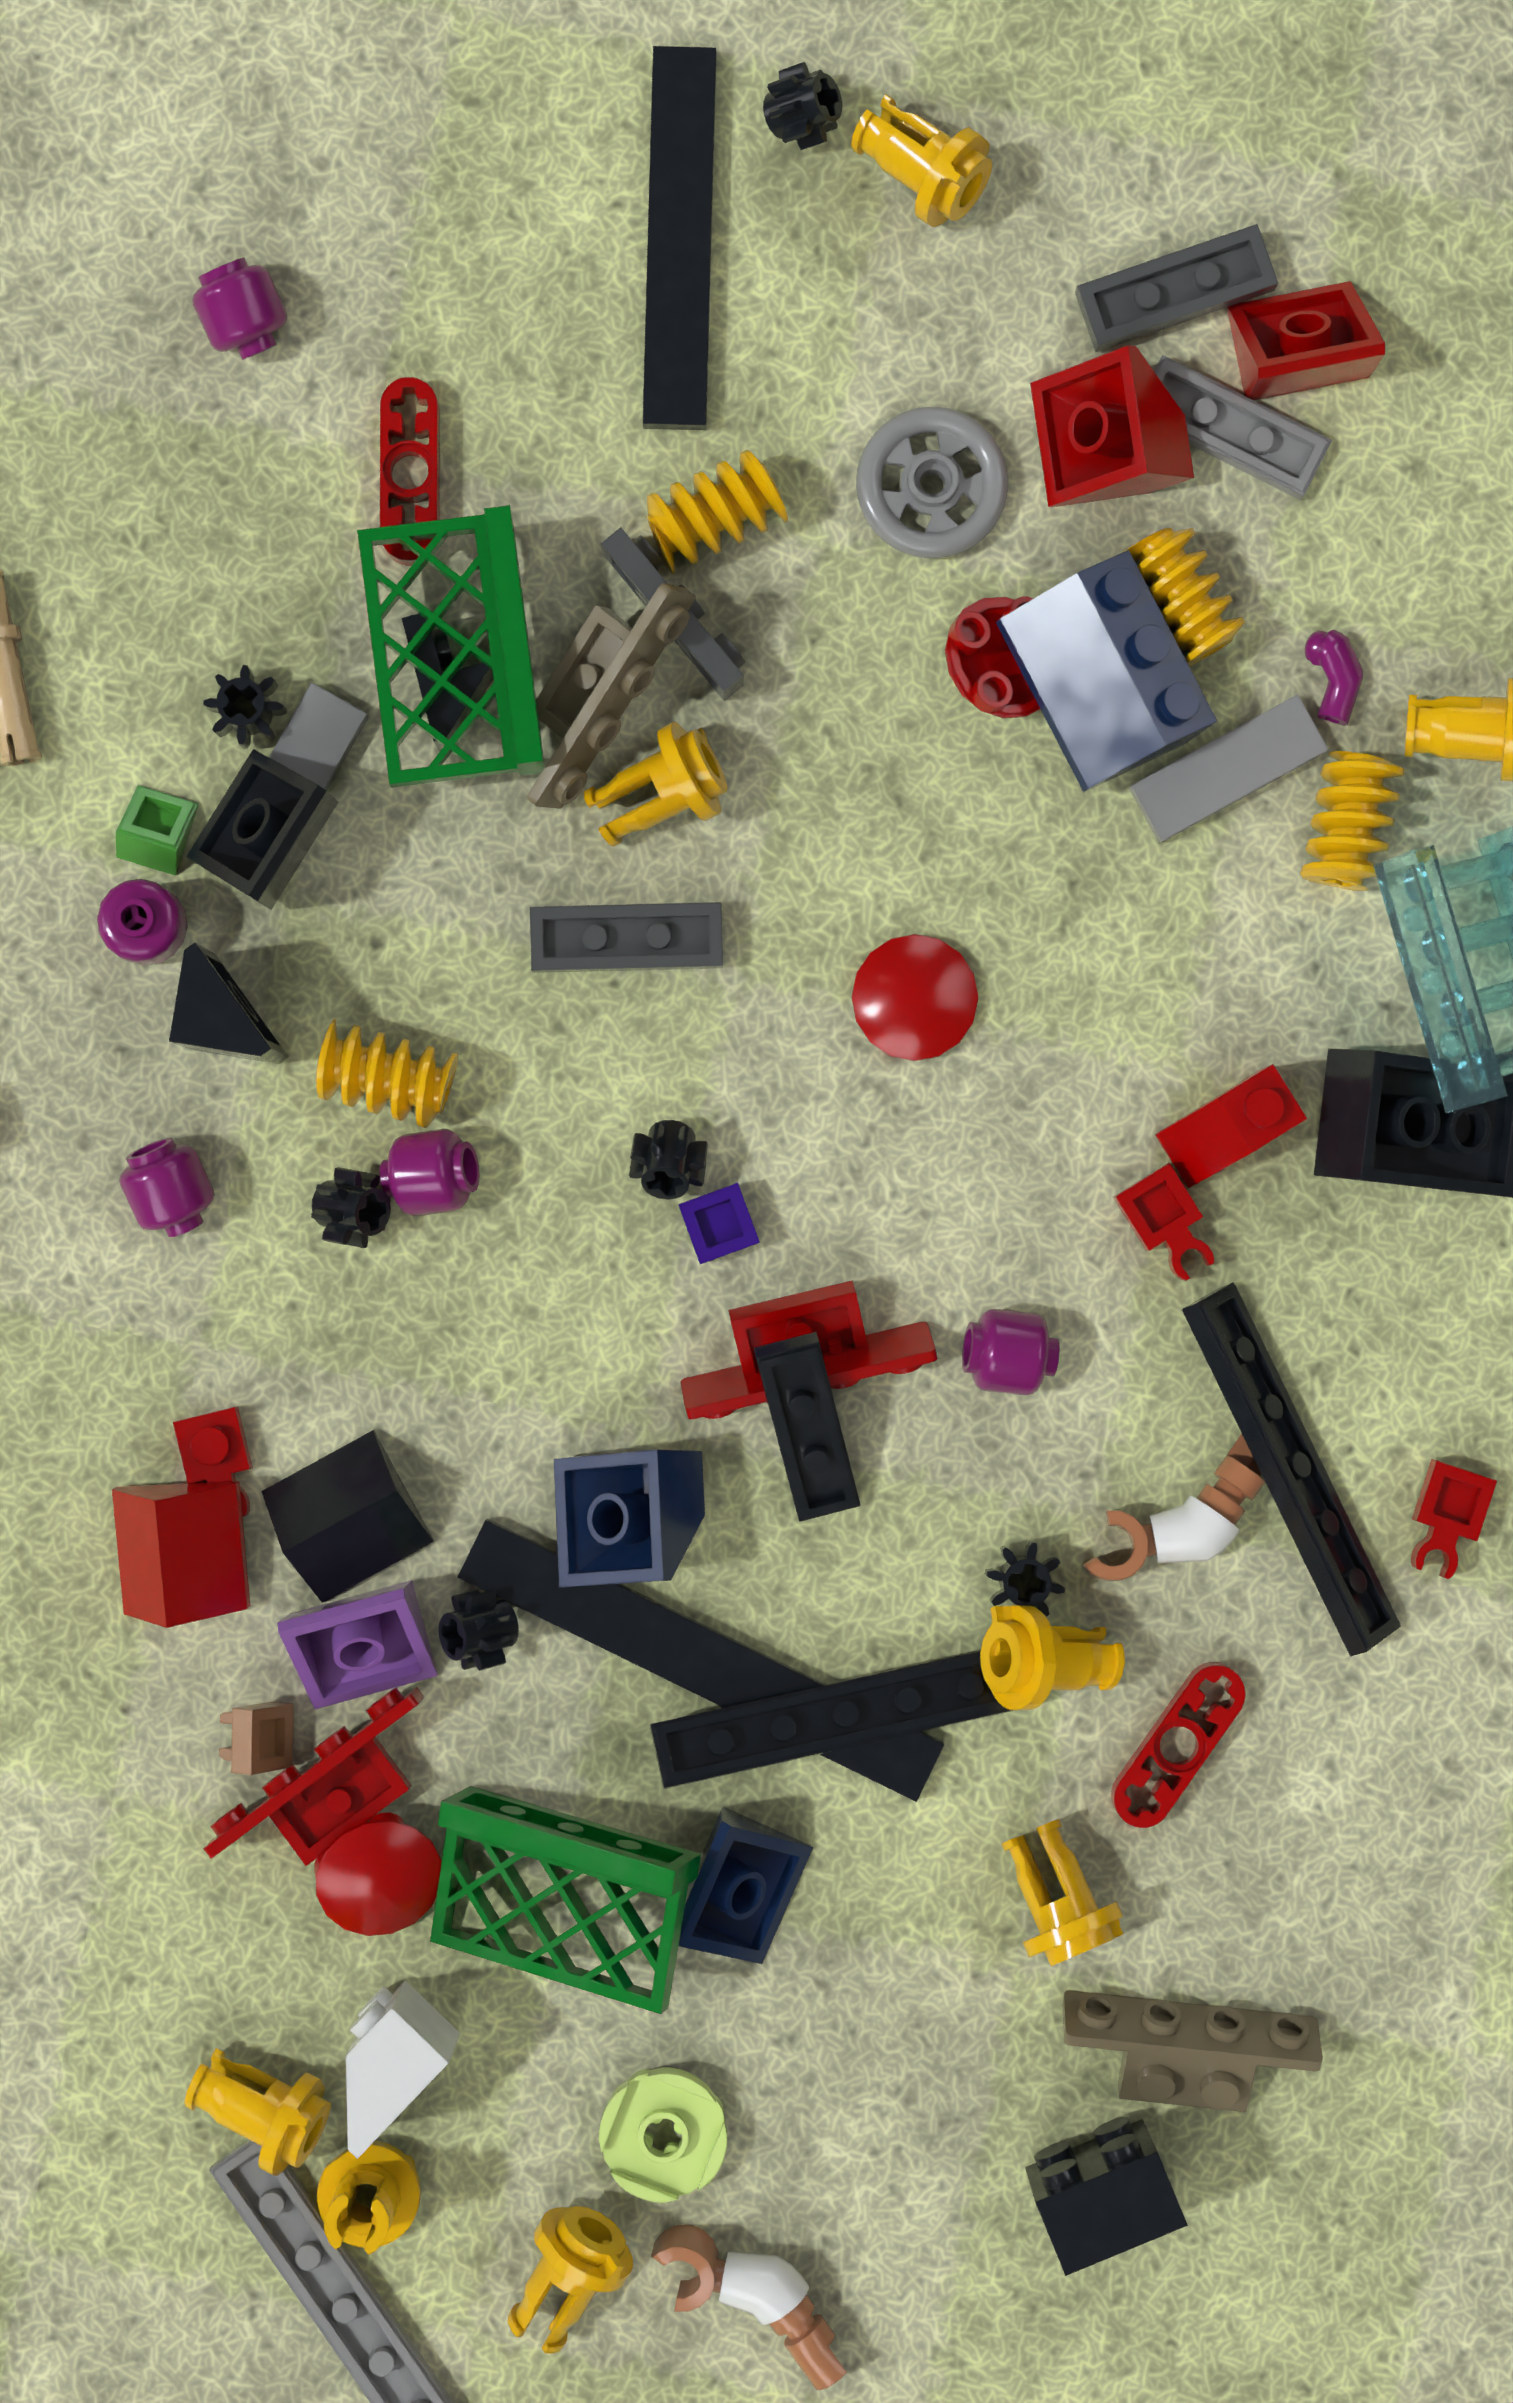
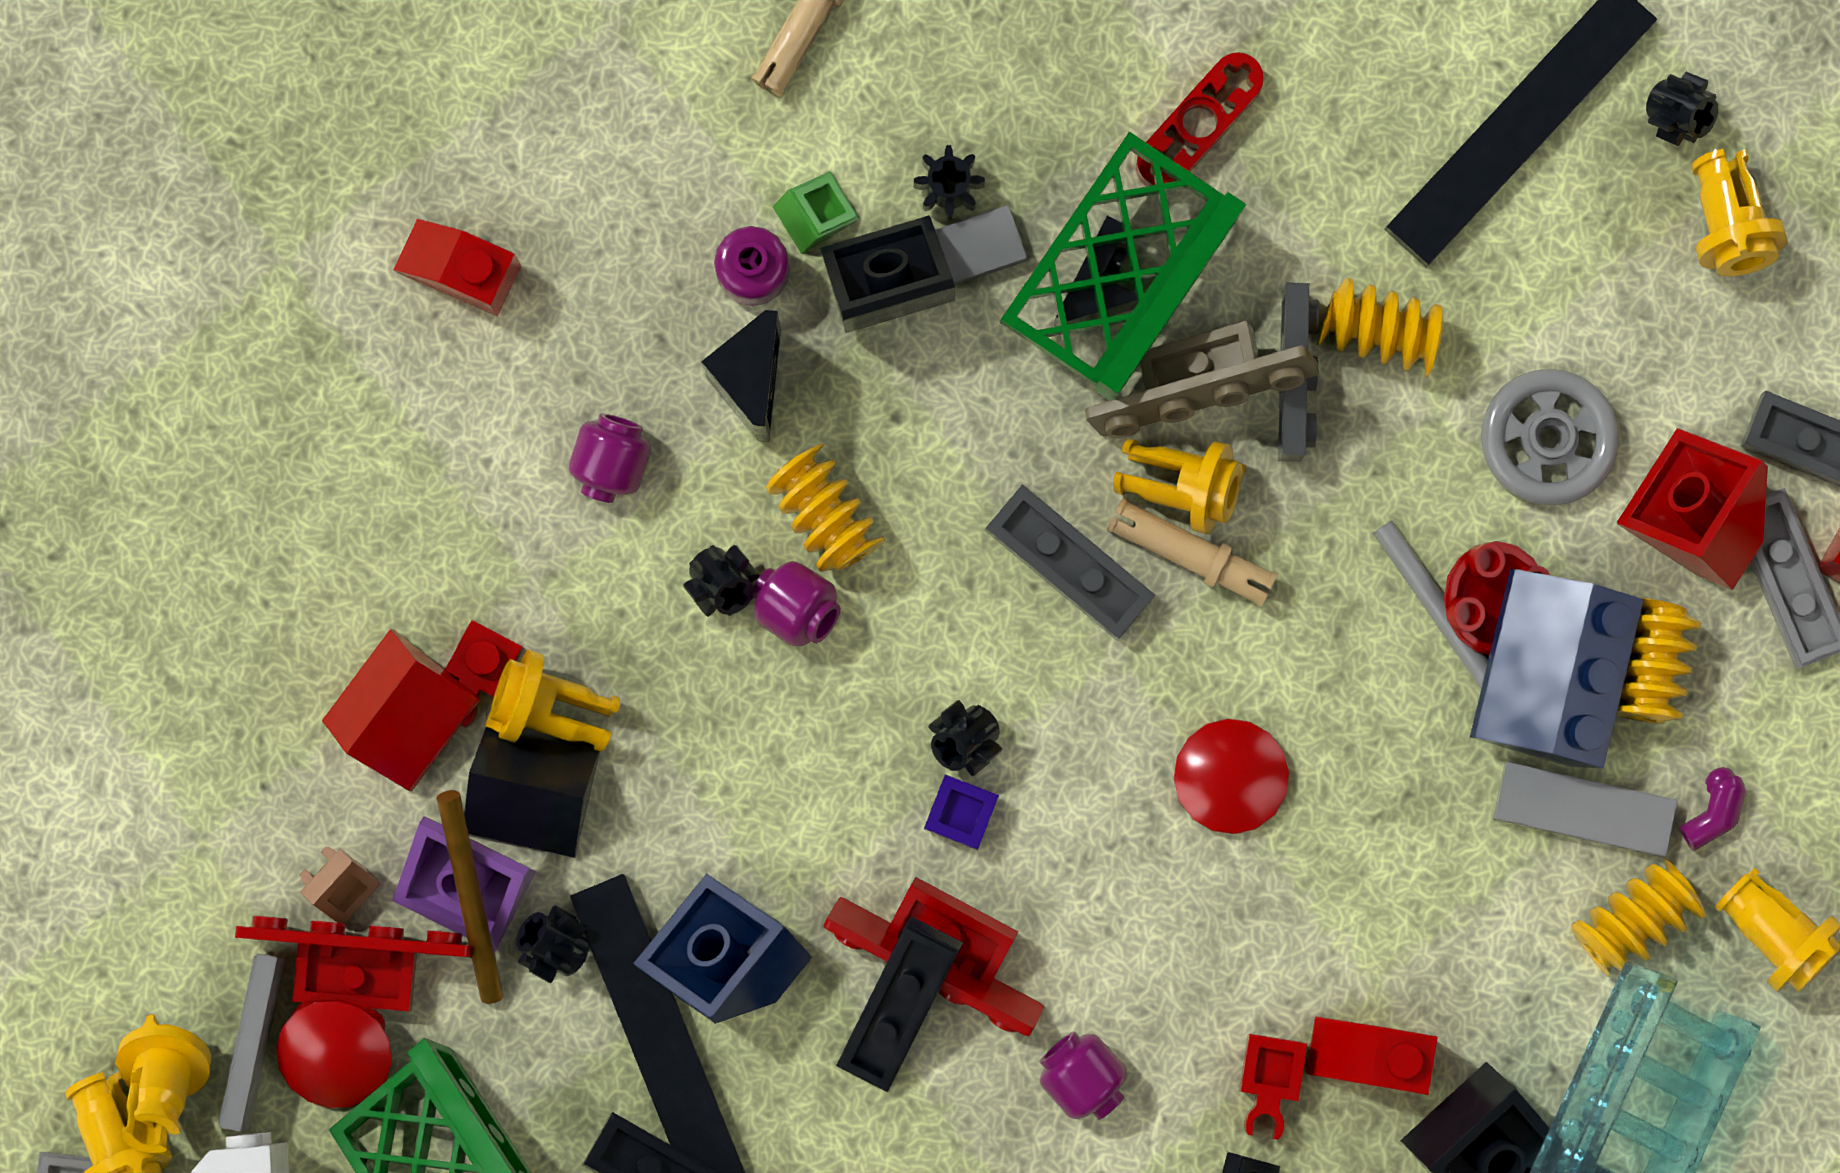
camera: 40 degrees right, 5 degrees down
(248, 2017) = (161, 1069): none -> yellow piece
(277, 1448) = (527, 697): none -> yellow piece
(303, 1928) = (251, 1042): none -> light grey tile
(374, 1653) = (470, 896): none -> pearl gold bar
(721, 839) = (1192, 552): none -> tan pin
(948, 704) = (1428, 595): none -> light grey bar

